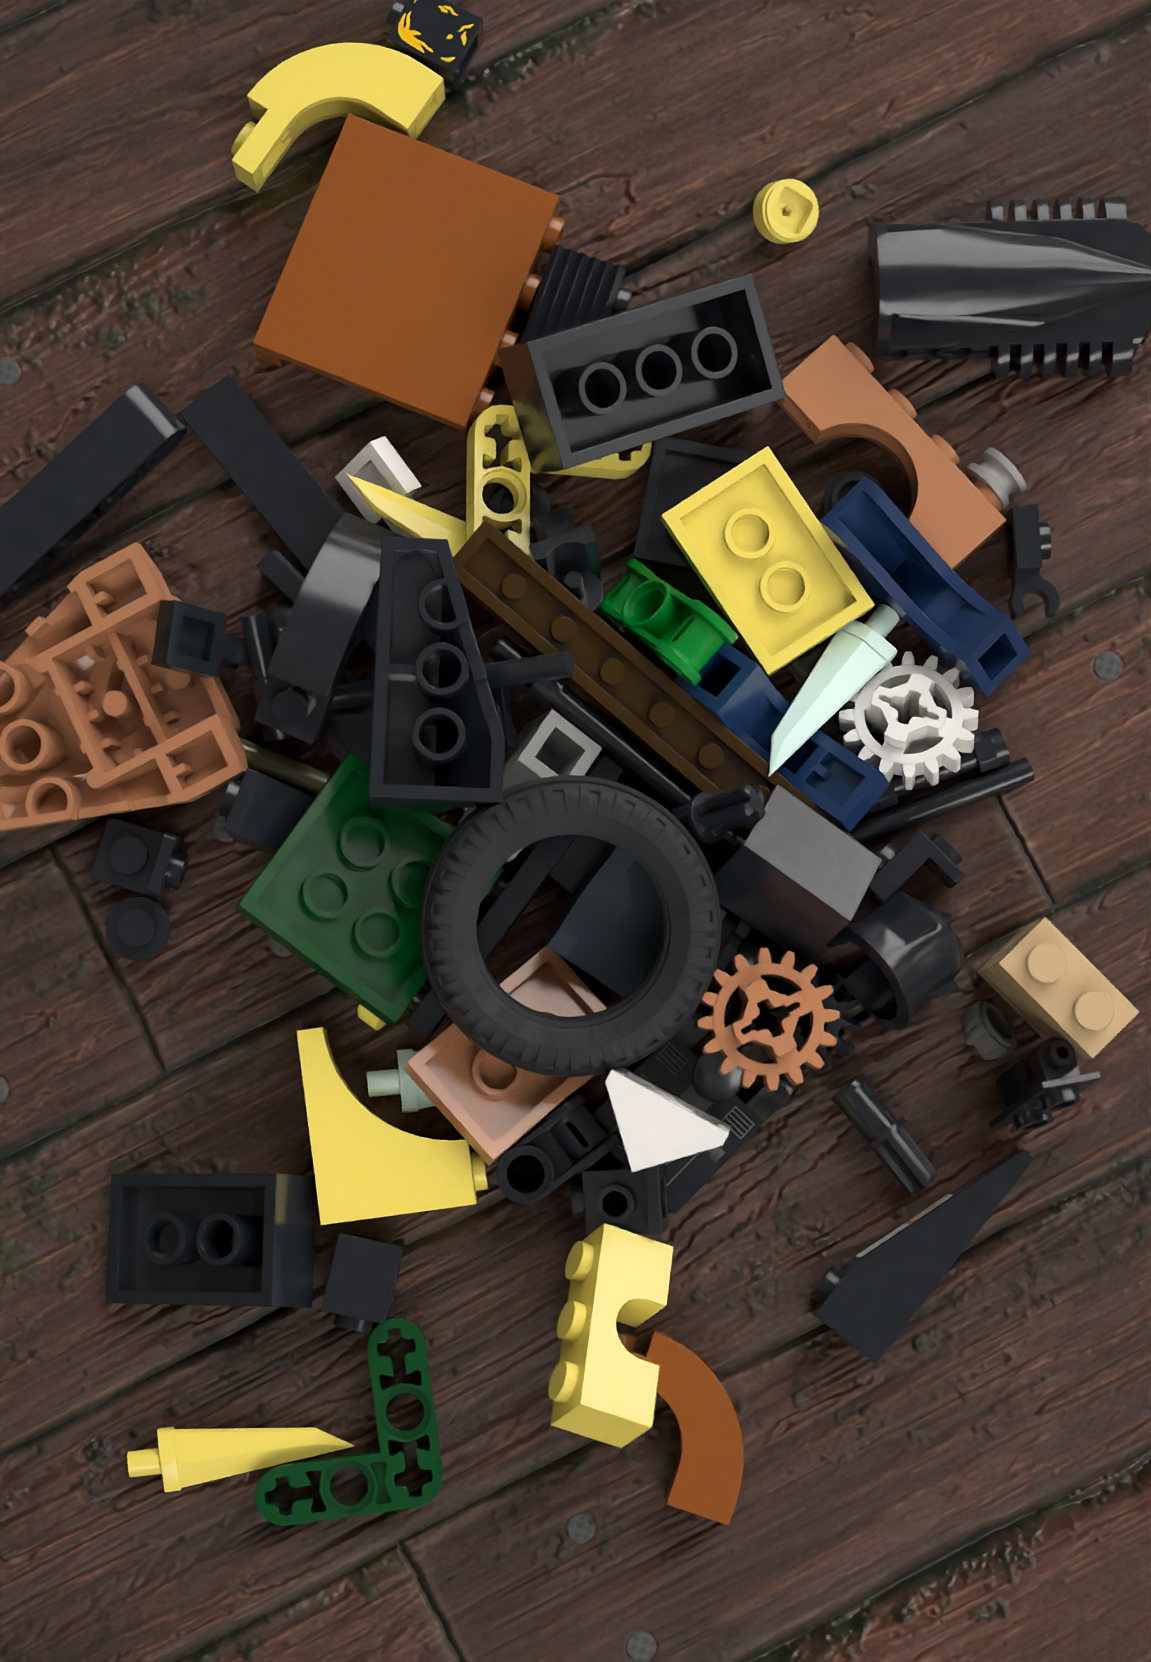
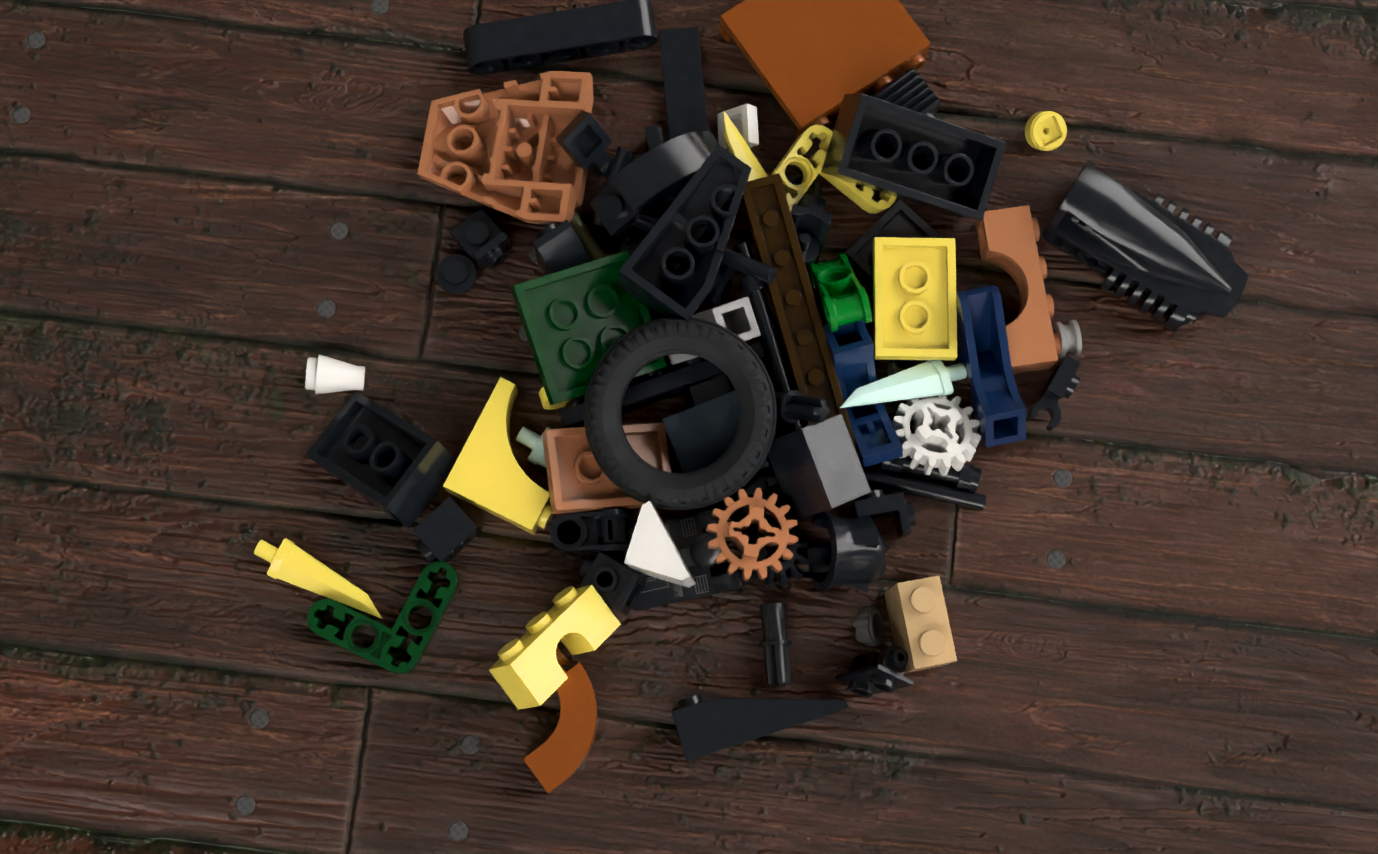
camera: 35 degrees right, 5 degrees down
(70, 1175) = (333, 375): none -> white cone

